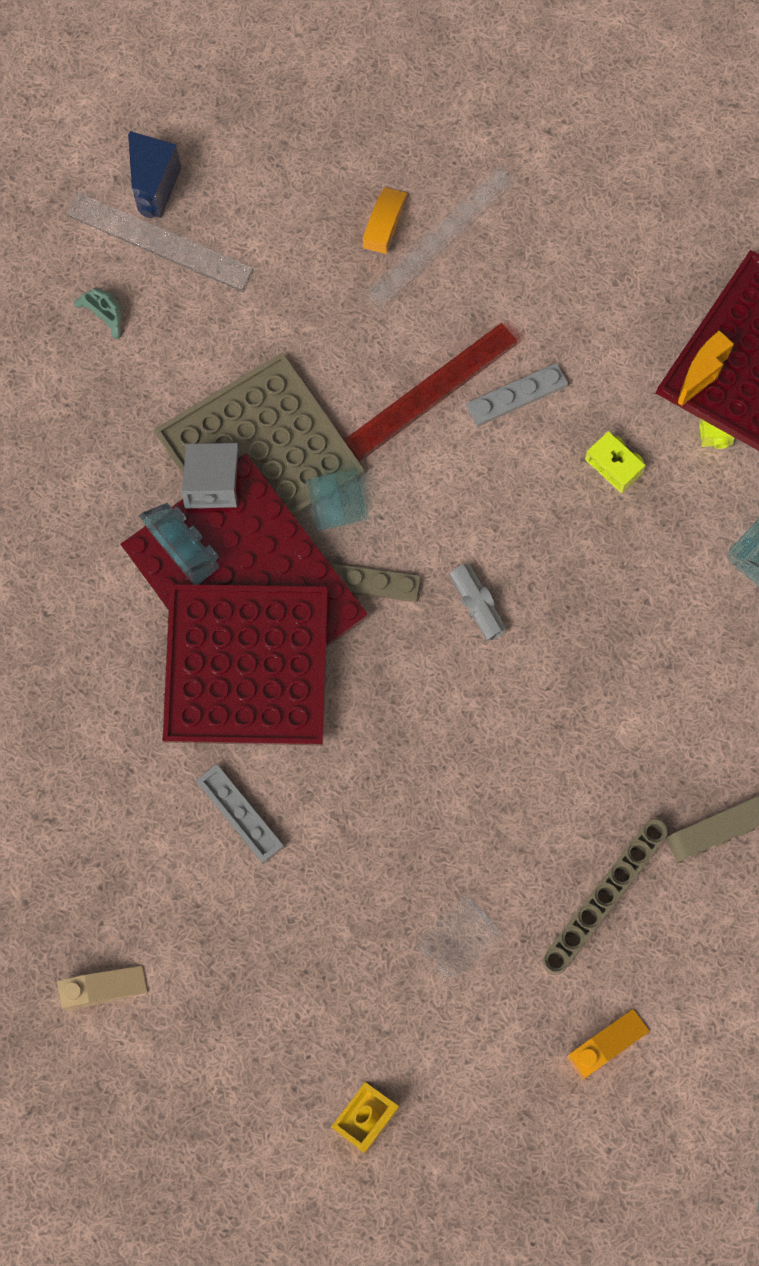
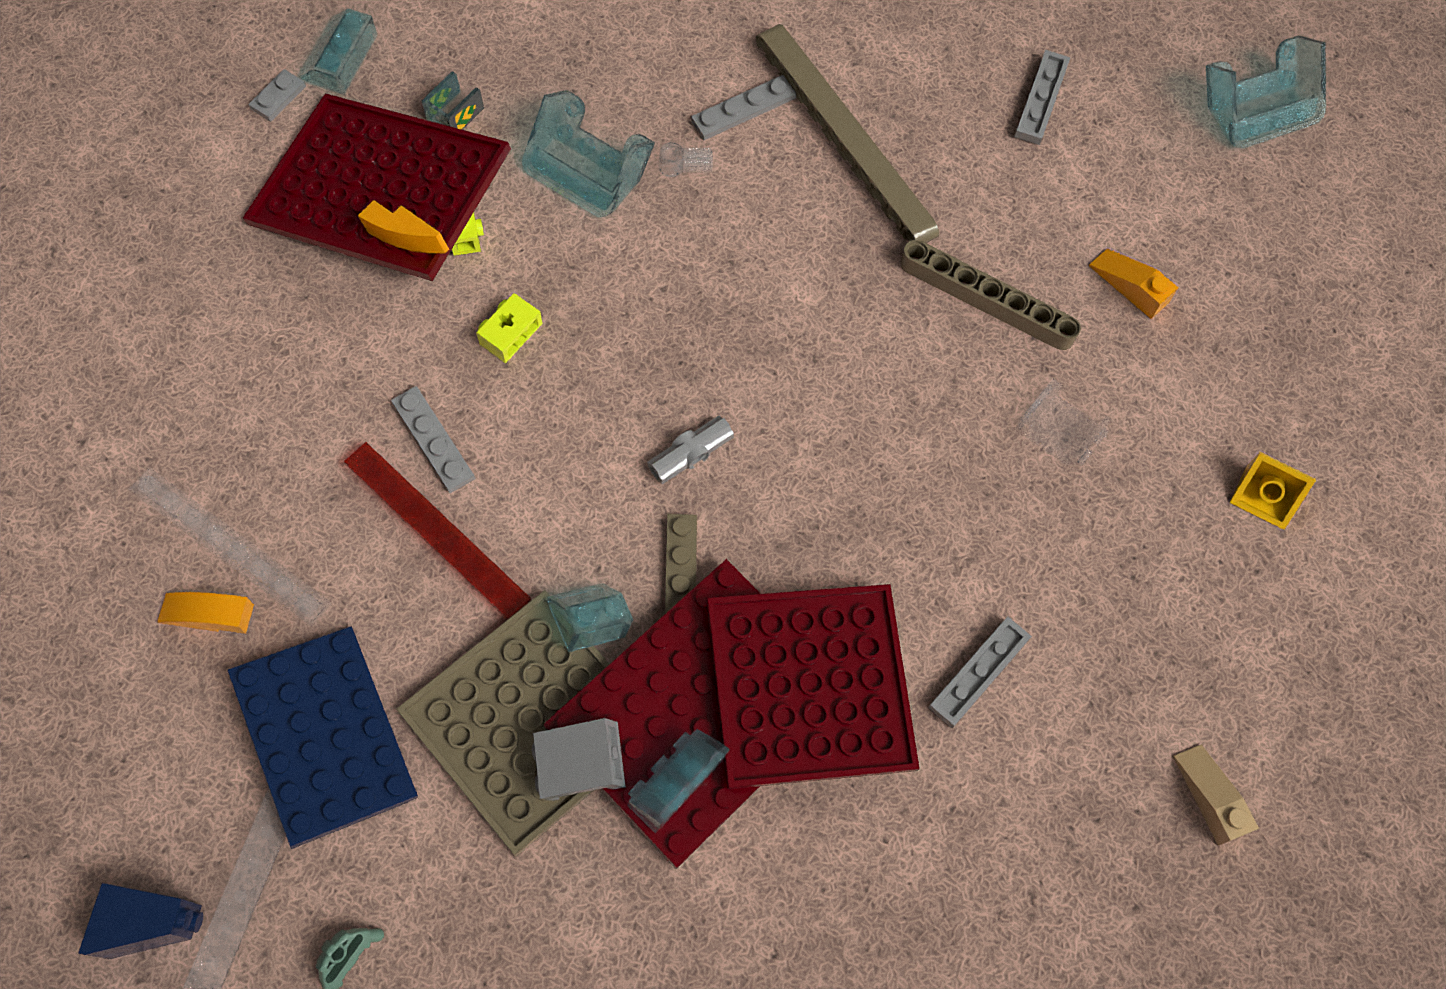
camera: 105 degrees left, 5 degrees down
(271, 298) = (322, 736): none -> dark blue plate

